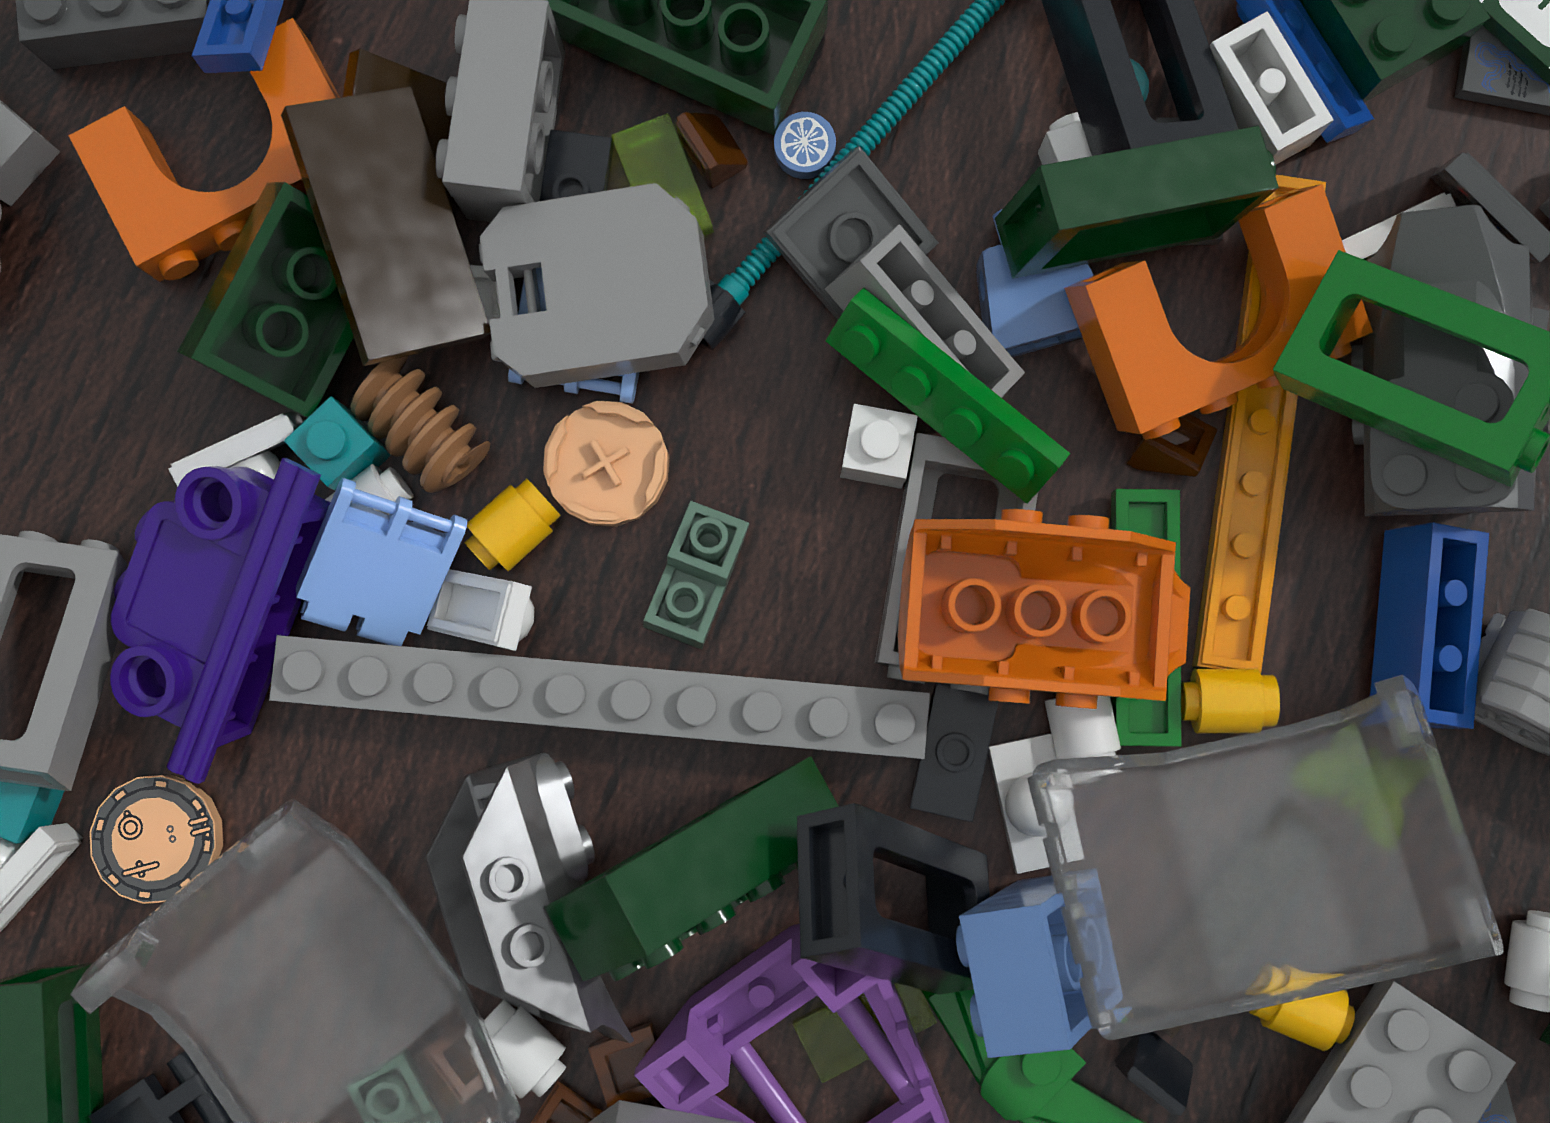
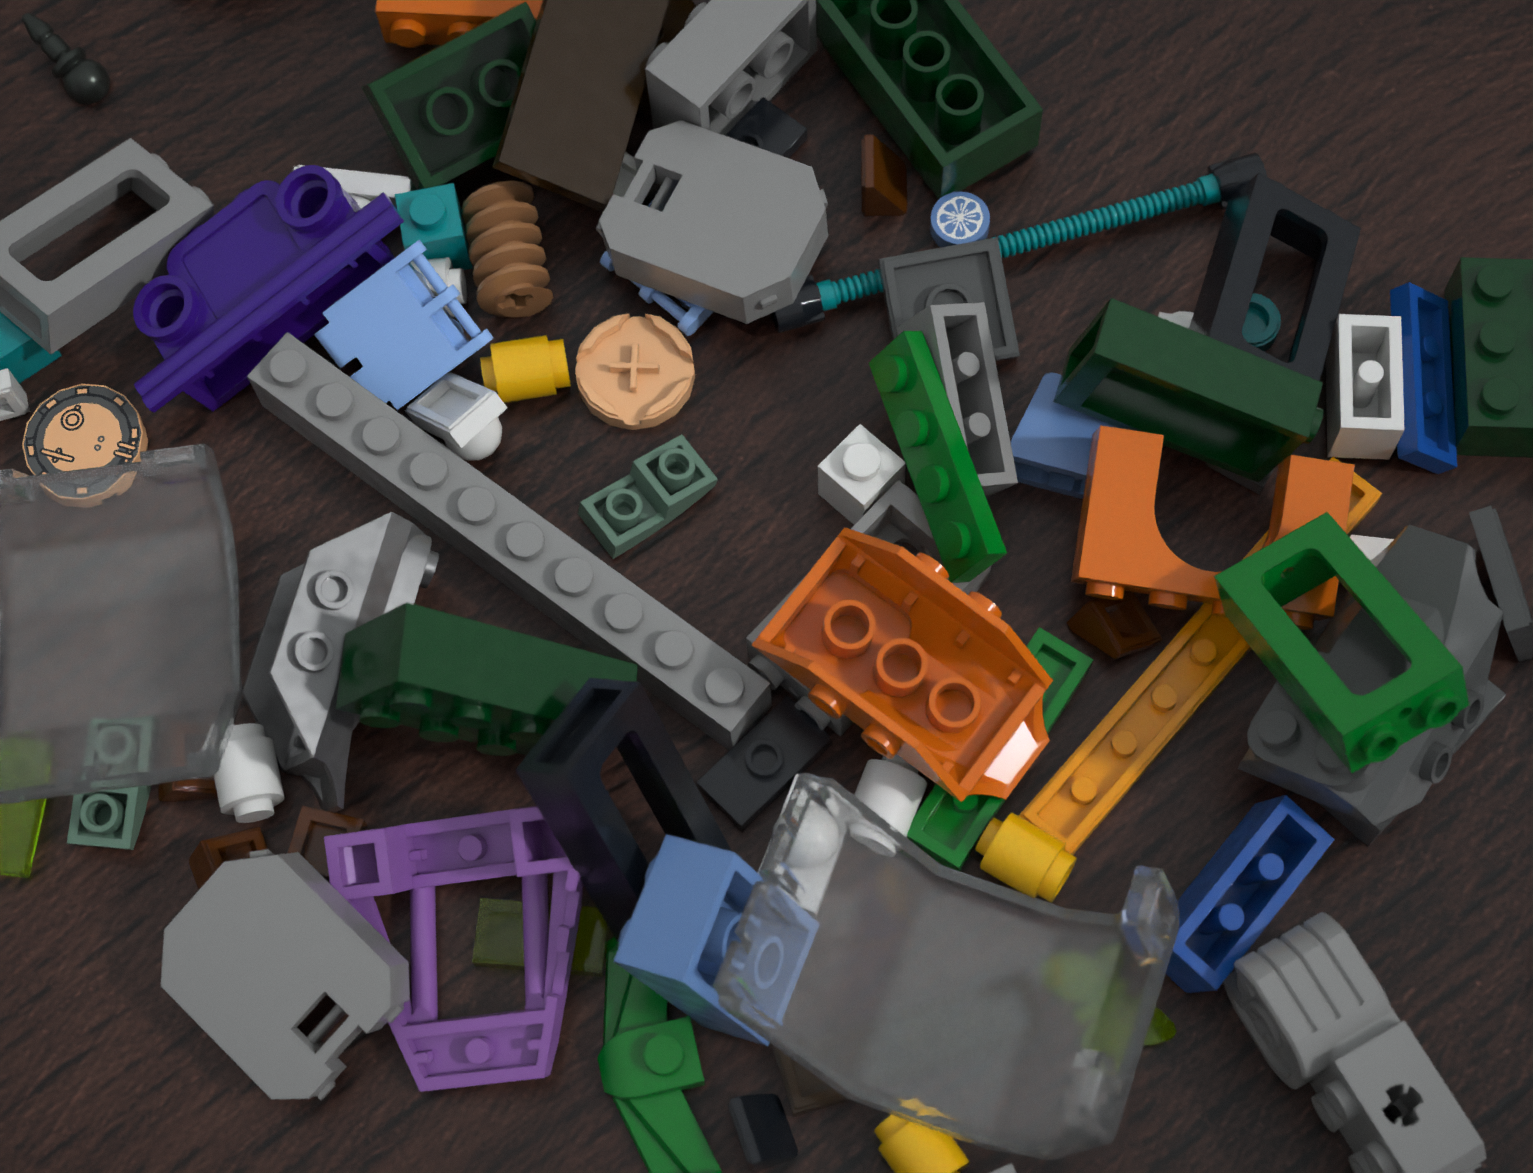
camera: 30 degrees right, 15 degrees down
(655, 155) = (836, 166): clear neon green tile -> none

